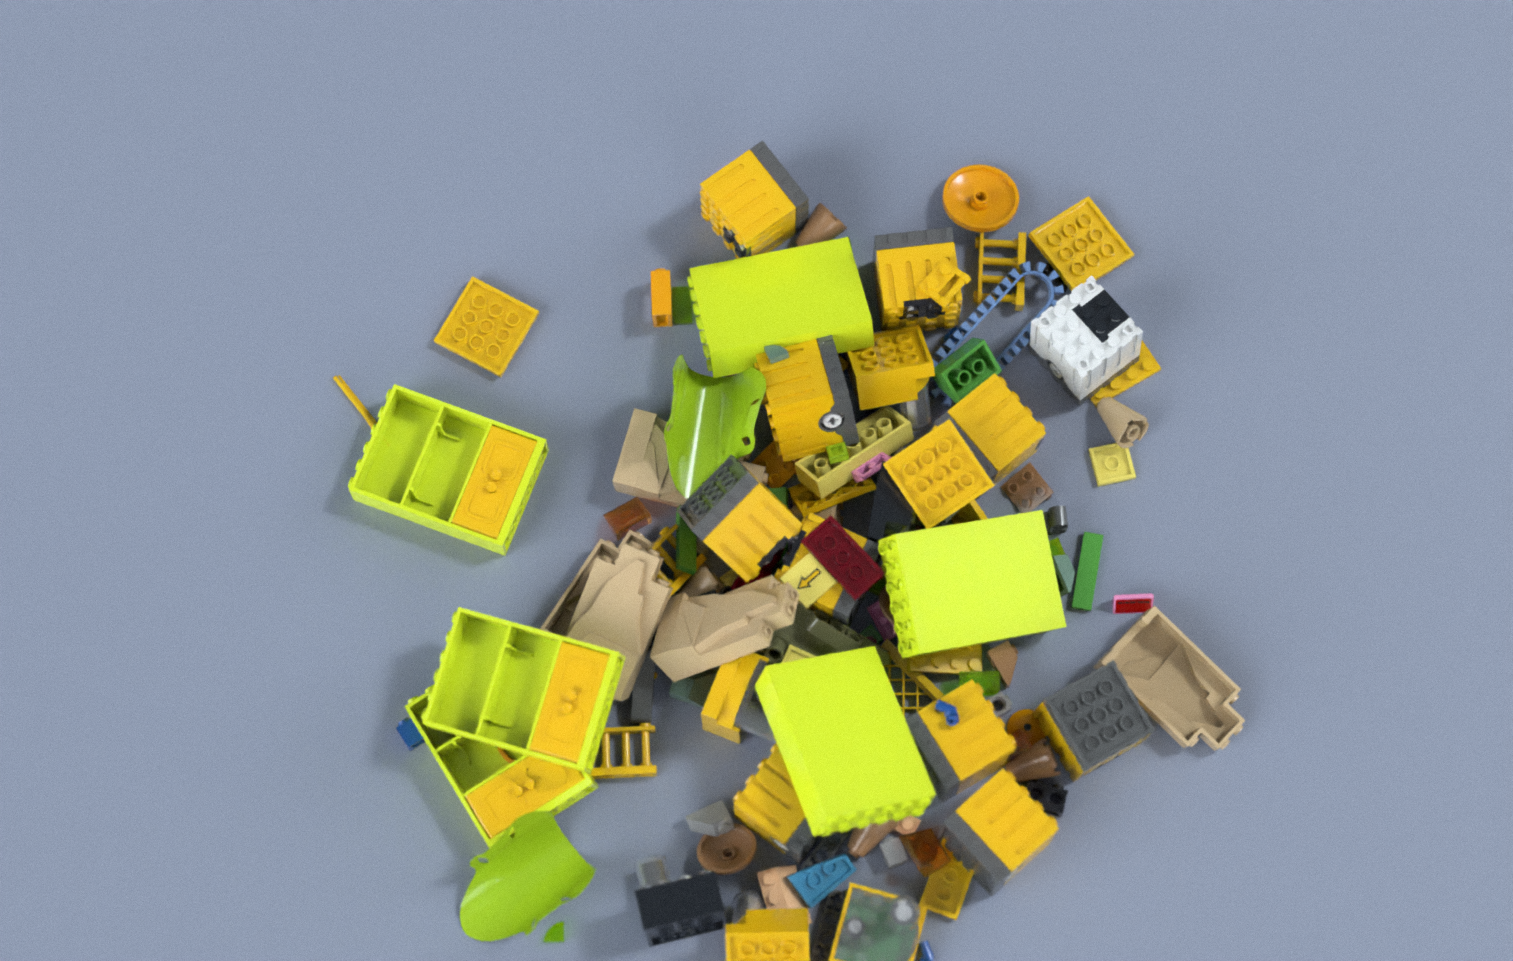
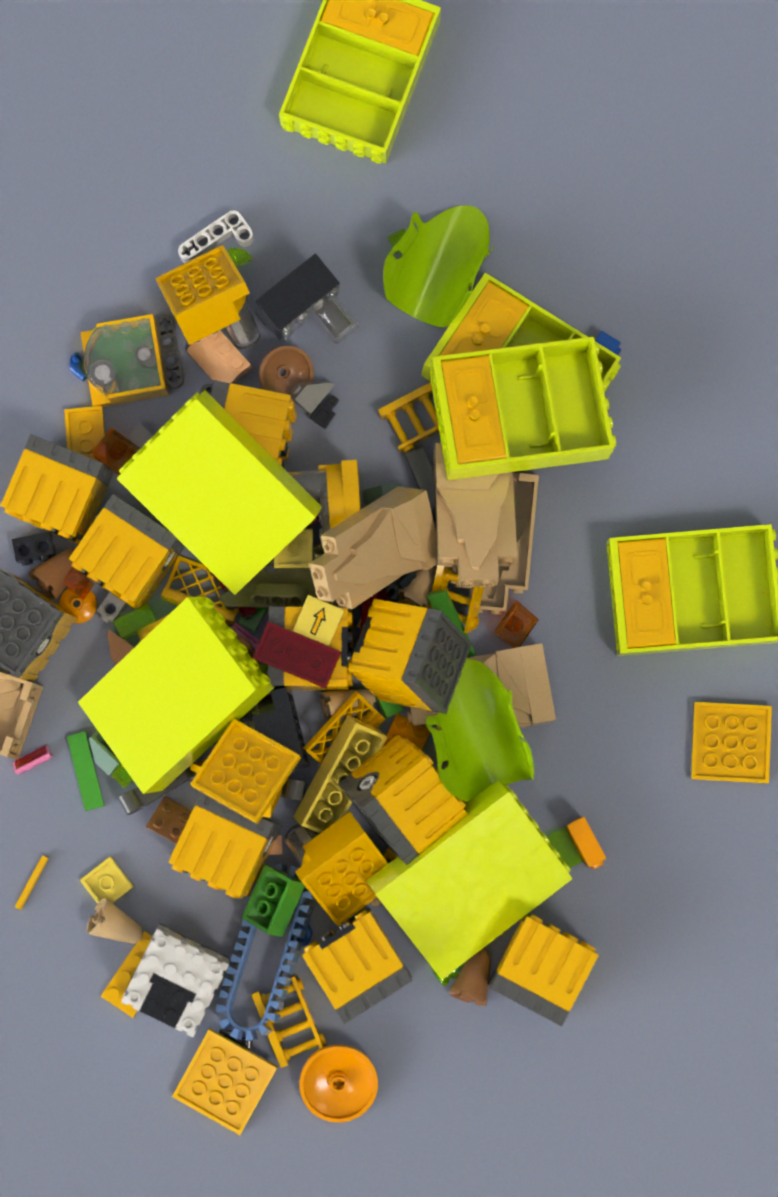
camera: 160 degrees right, 10 degrees up
(708, 796) = (323, 414): none -> black plate
(776, 353) = (448, 820): sand green tile -> none
(821, 879) = (196, 379): dark azure wing -> none
(837, 452) = (352, 762): lime tile -> none
(869, 467) = (315, 765): bright pink slope -> none
(940, 278) = (331, 965): yellow plate -> none
(950, 712) = (138, 561): blue arm -> none
(1181, 495) = (31, 882): none -> yellow bar

